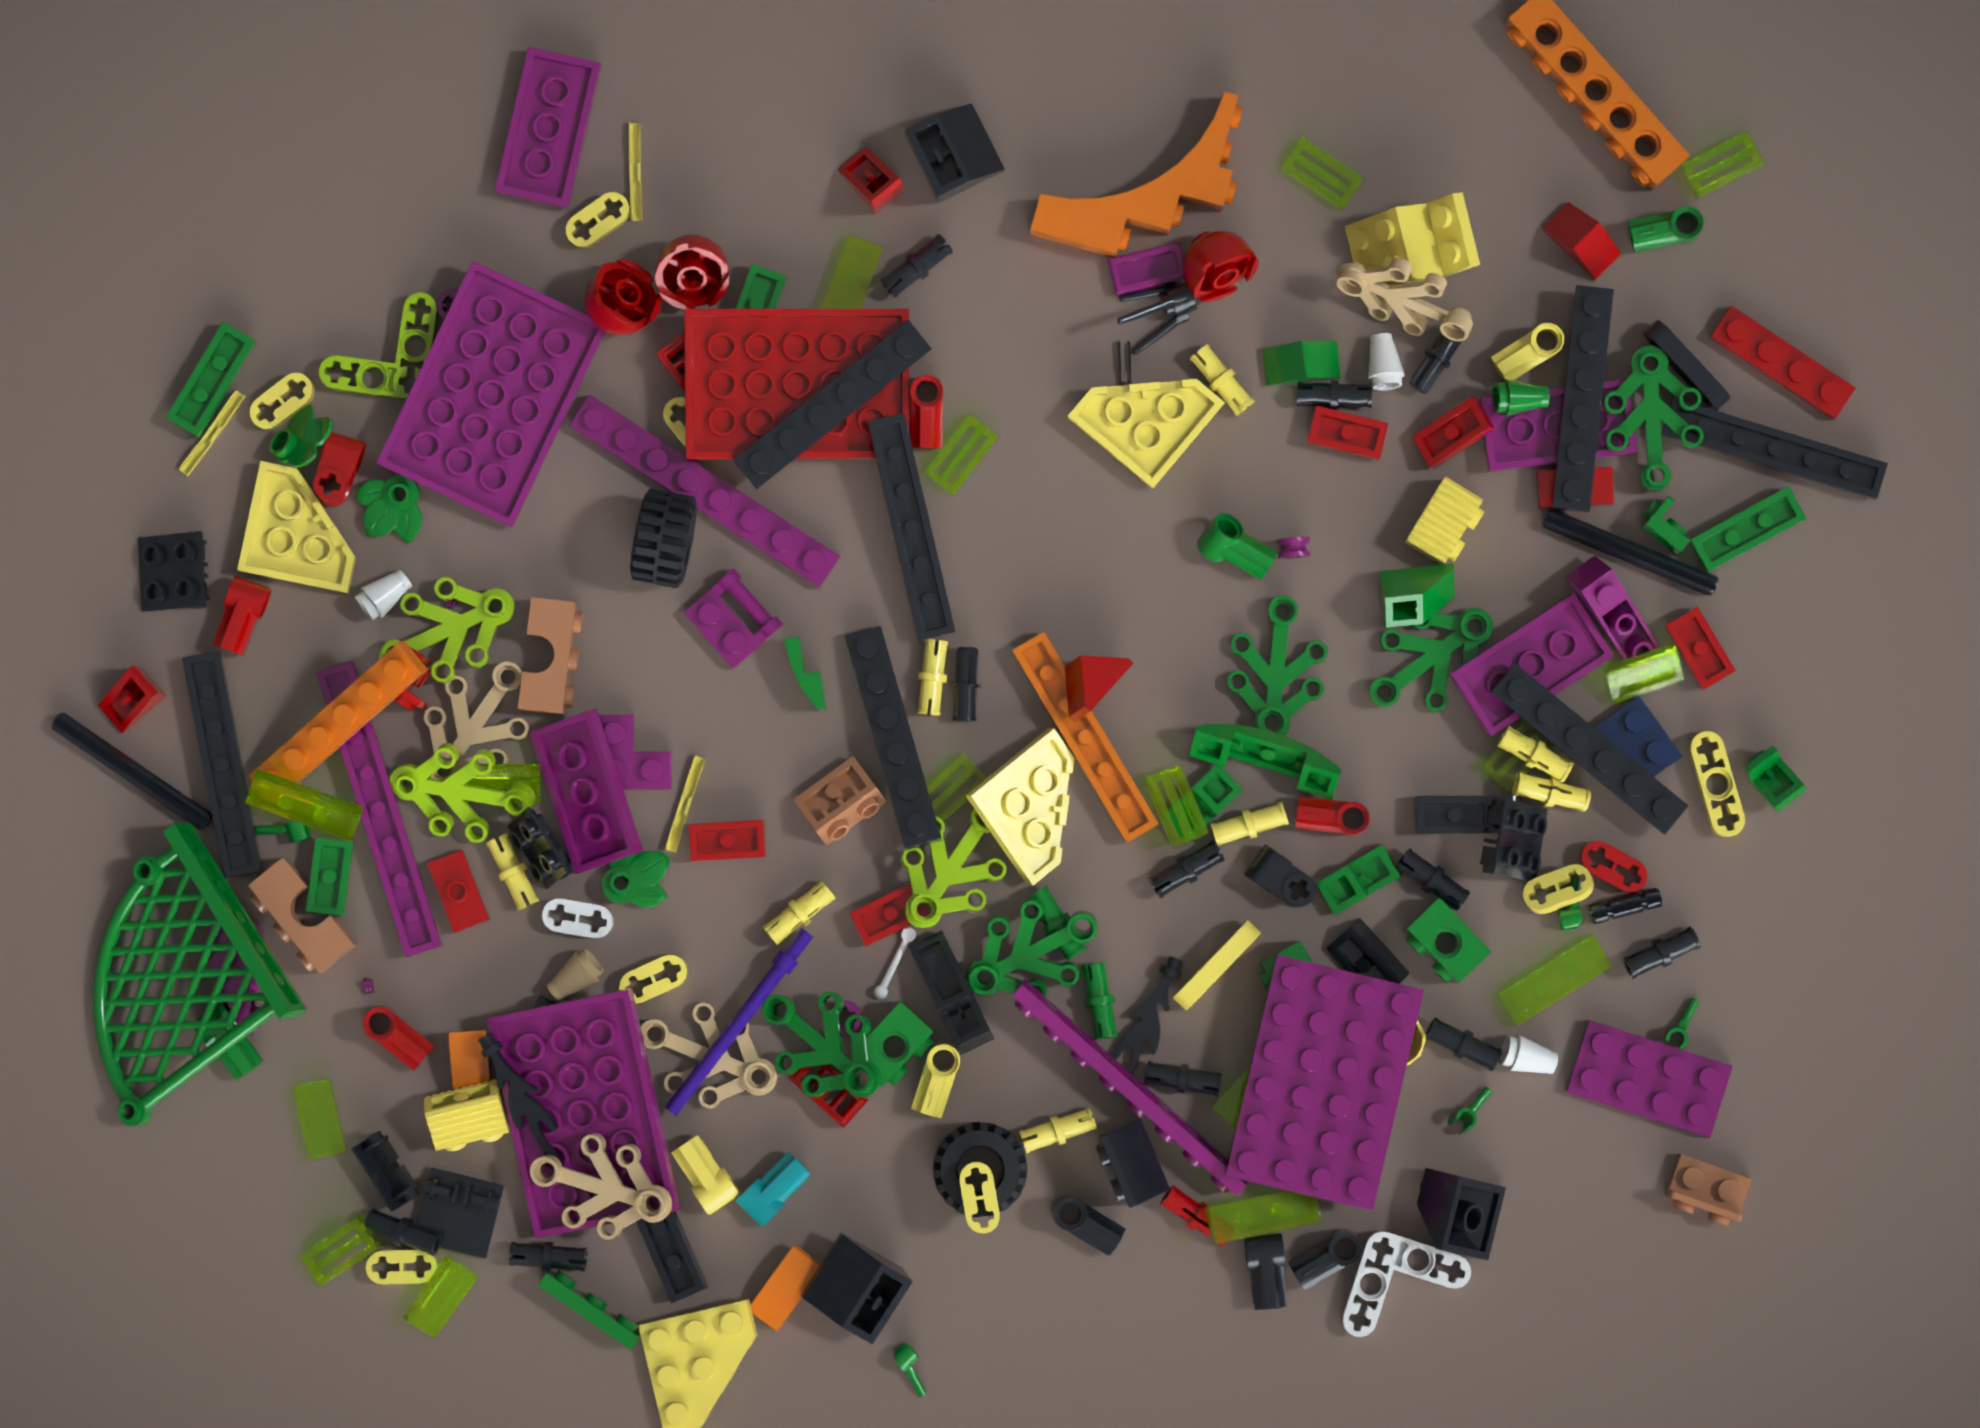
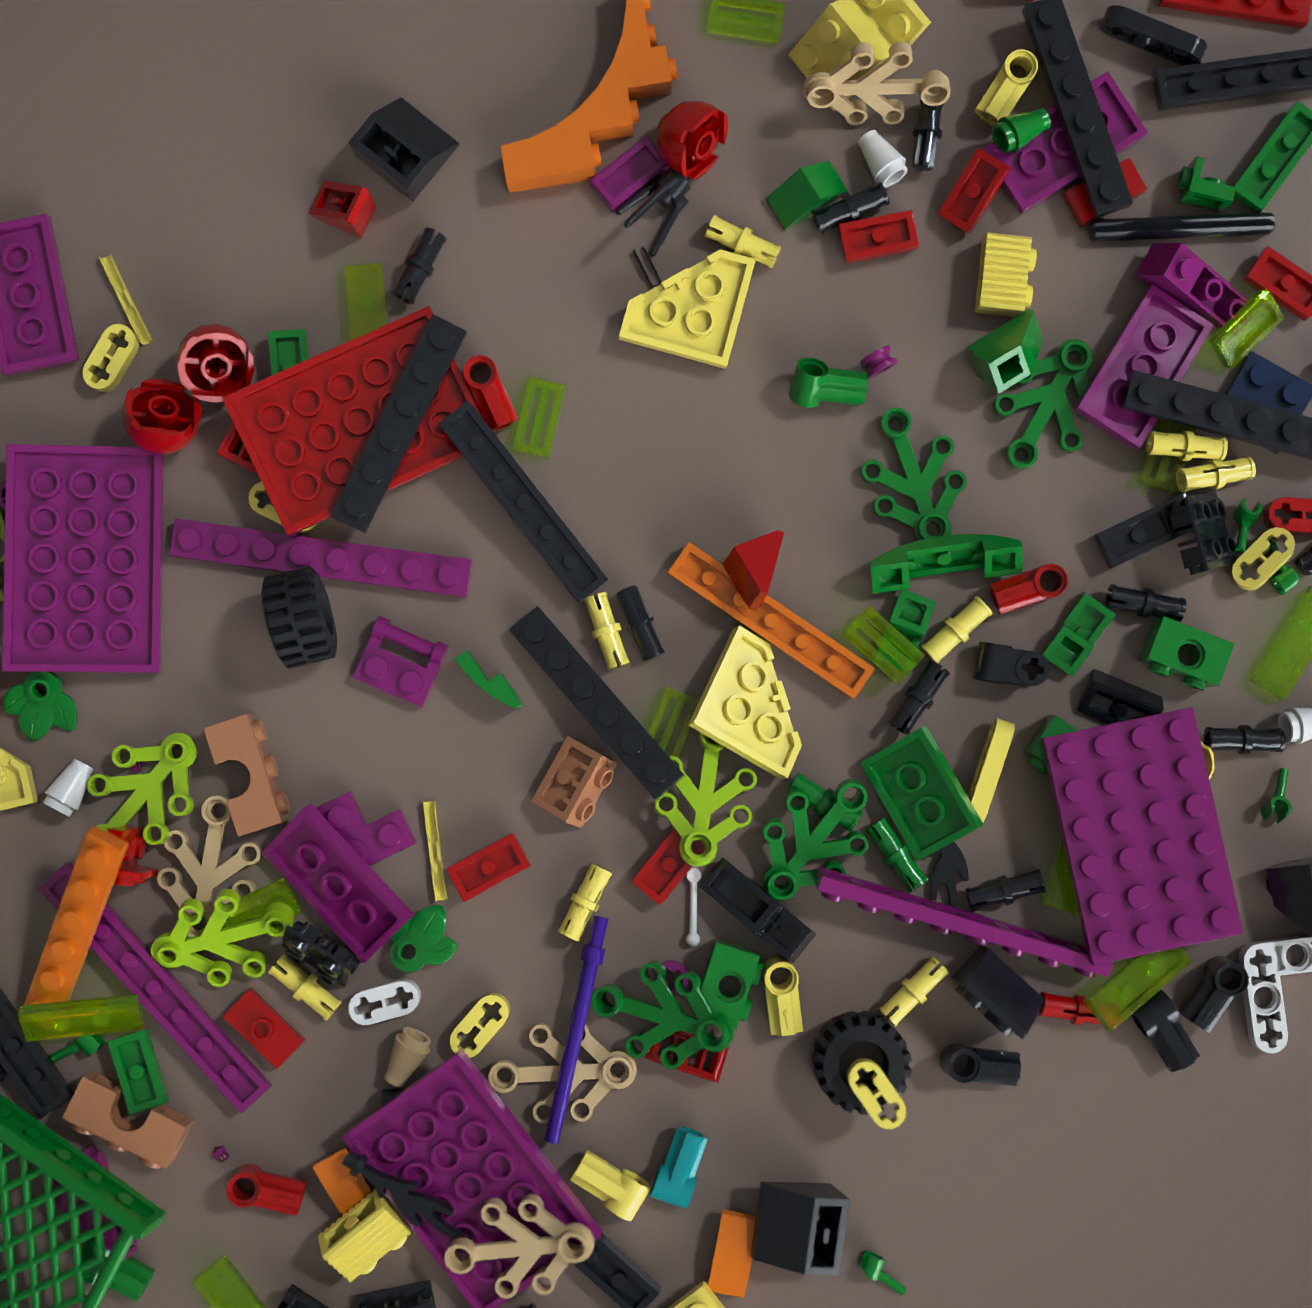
camera: 25 degrees left, 0 degrees up
(1146, 955) = (921, 793): none -> green plate
(1560, 847) = (1245, 519): none -> green hand
(1652, 411) = (1145, 90): green plant -> none

